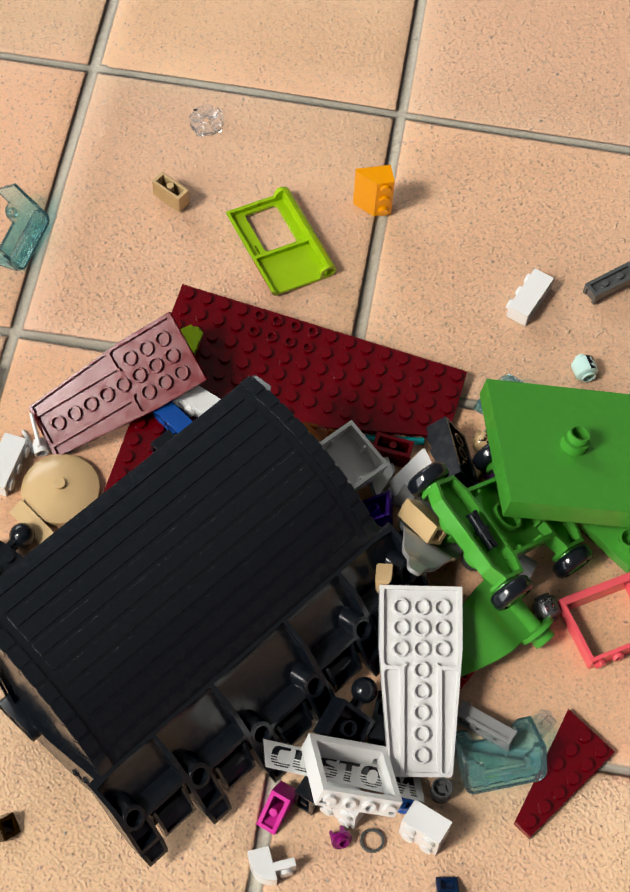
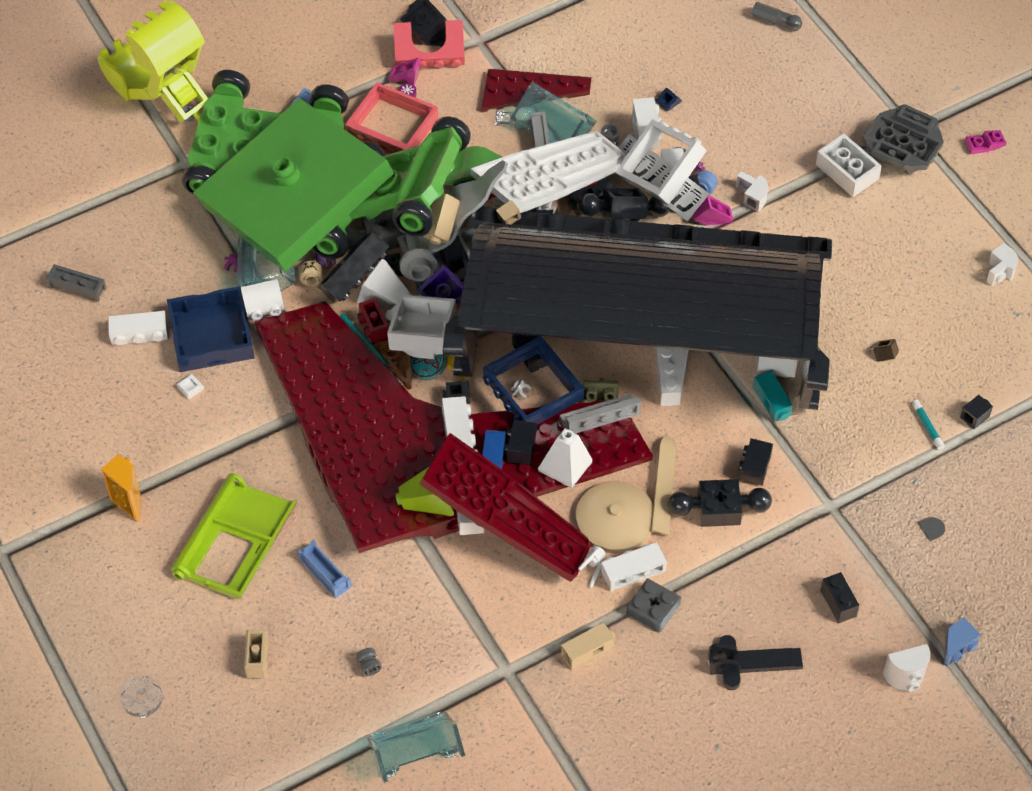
camera: 125 degrees left, 5 degrees down
(101, 252) = (368, 661): none -> dark grey wheel
(122, 463) = (566, 459): none -> white slope
(201, 277) = (324, 569): none -> medium blue container
(315, 828) = (707, 181): none -> medium blue head
(444, 300) = (190, 386): none -> white tile
(475, 380) = (263, 299): none -> white brick
(482, 530) = (425, 163): black pin -> none
(485, 339) = (210, 329): none -> dark blue tile
(584, 368) = (180, 253): light aqua head -> none

